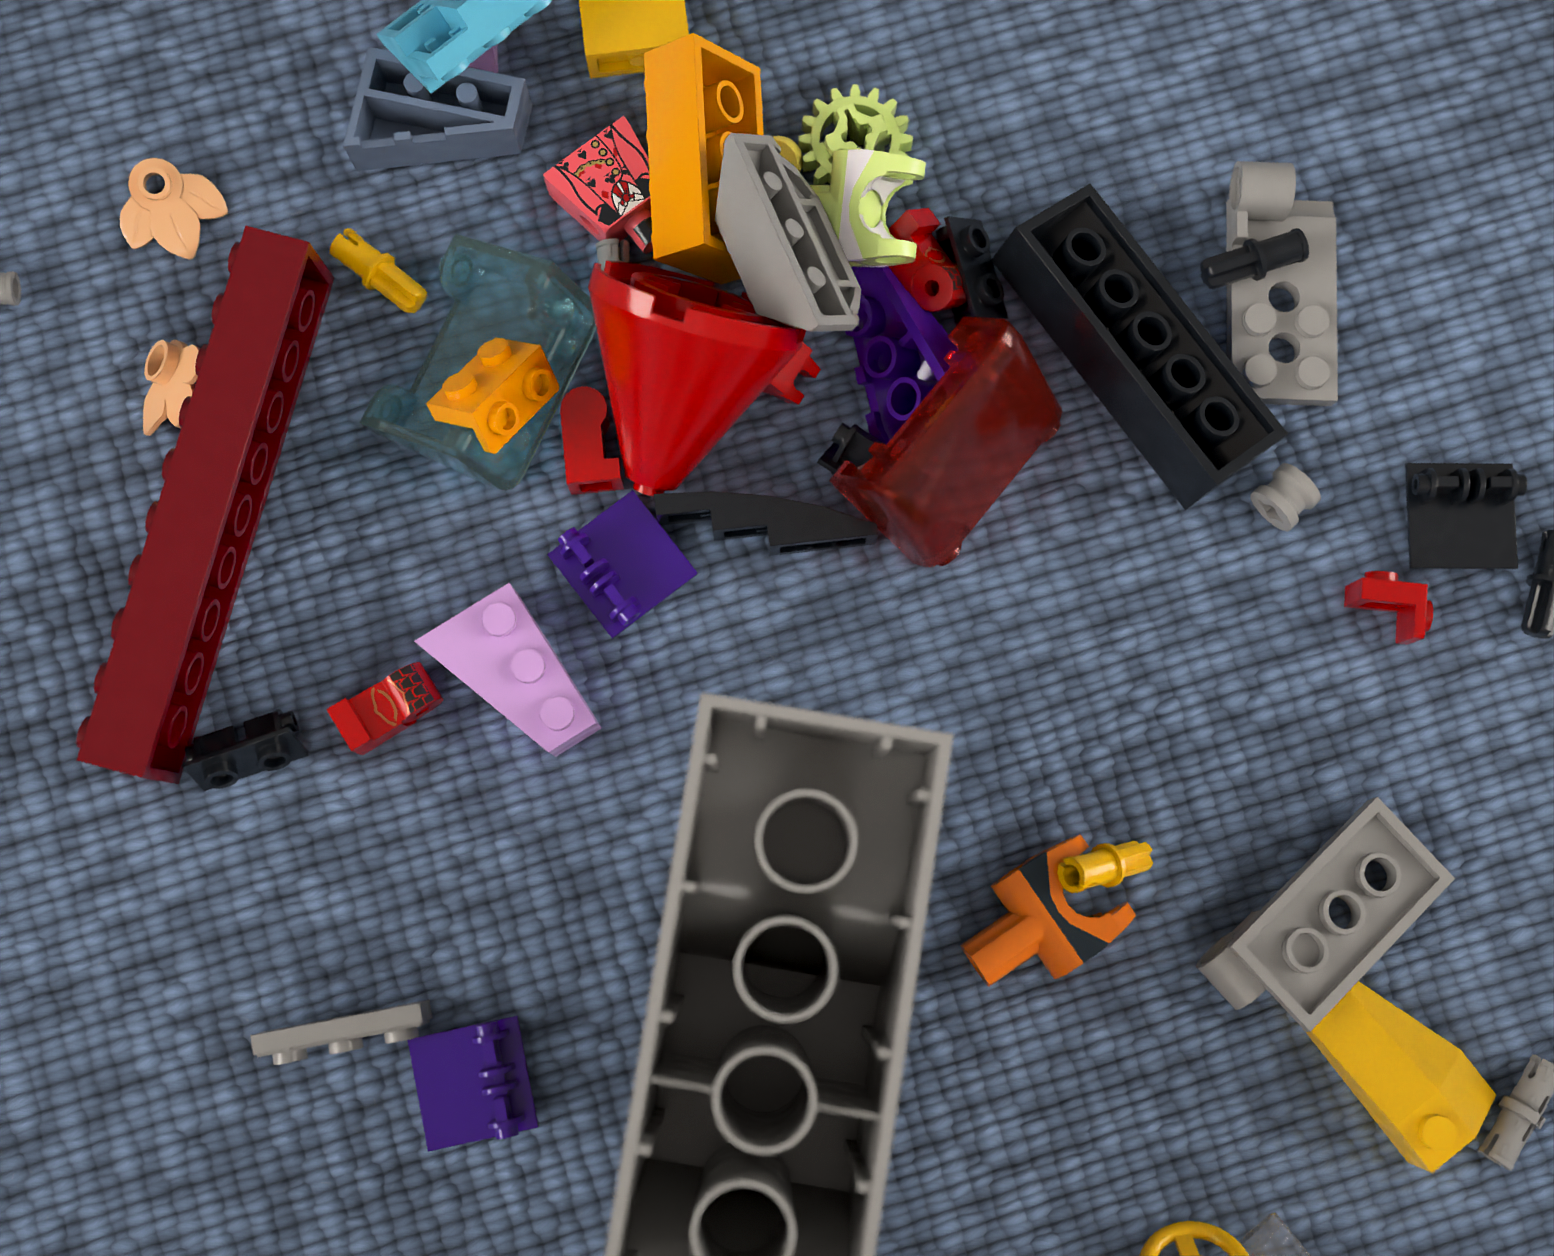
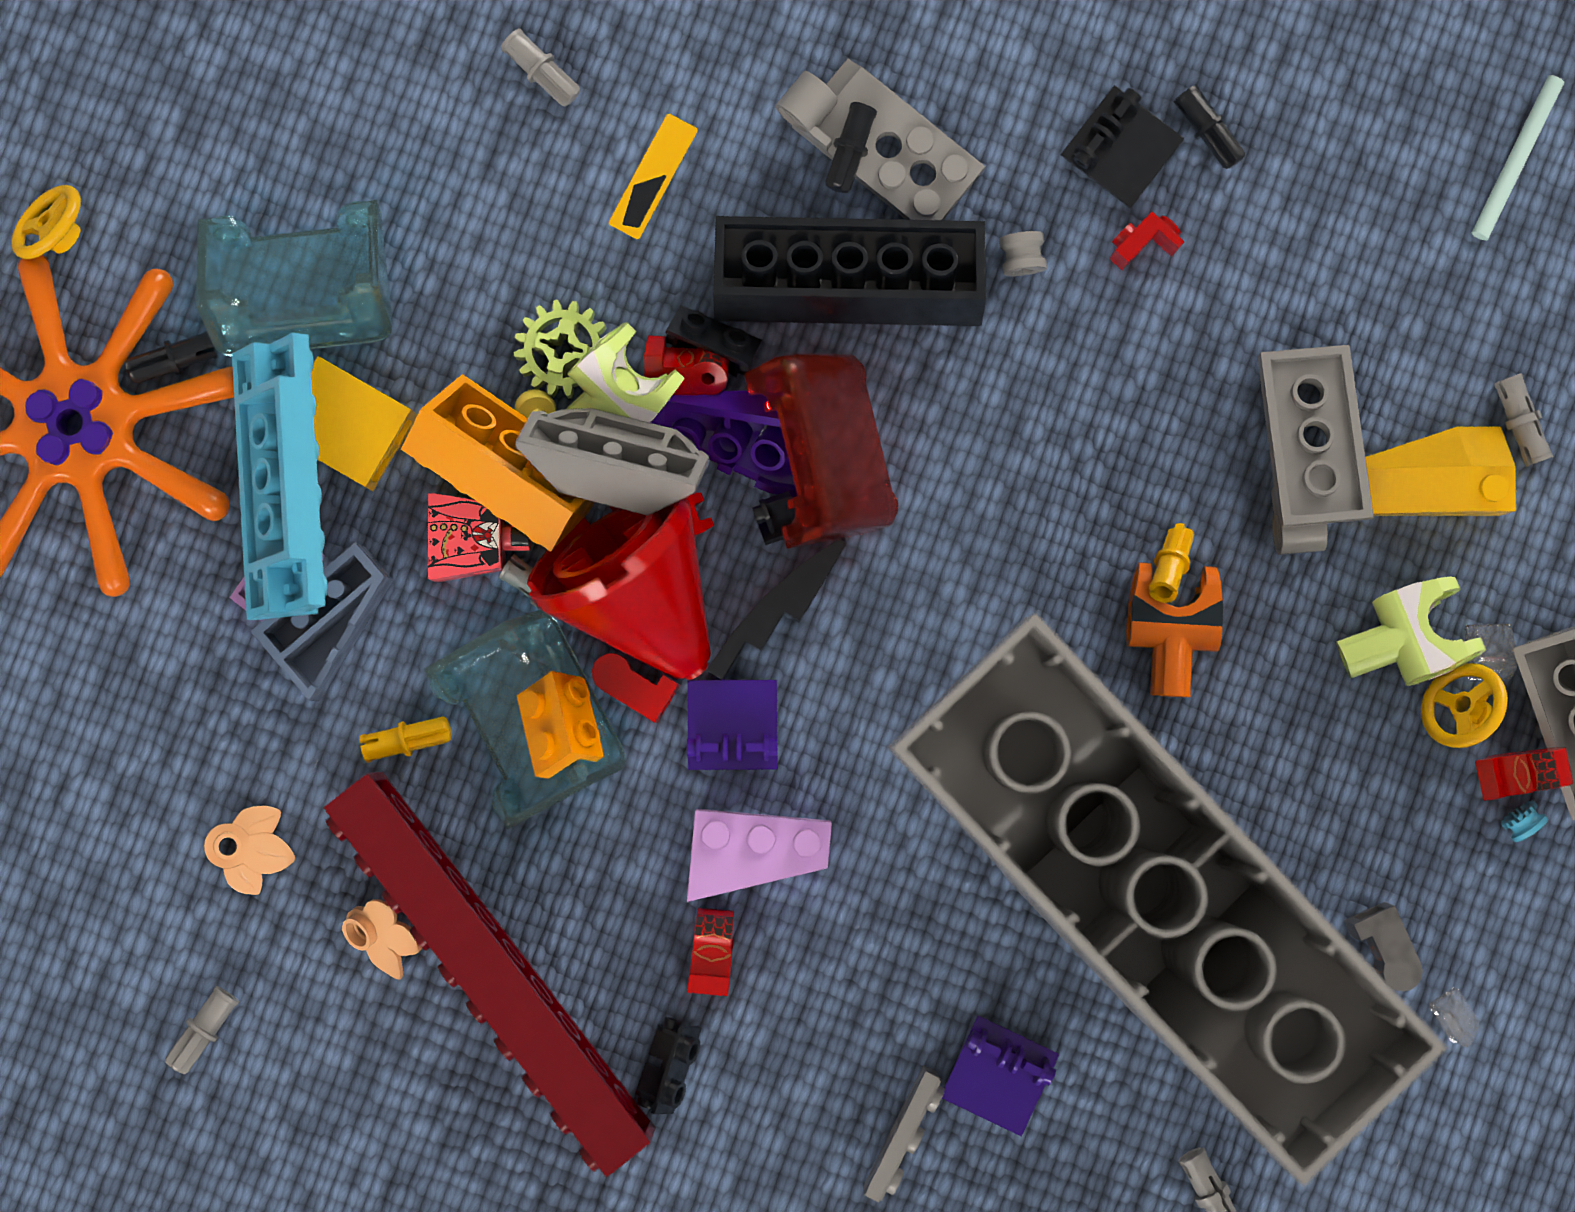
camera: 50 degrees left, 5 degrees up
(1079, 110) = (653, 176): none -> yellow sticker
(1219, 1161) = (1407, 636): none -> yellowish green connector

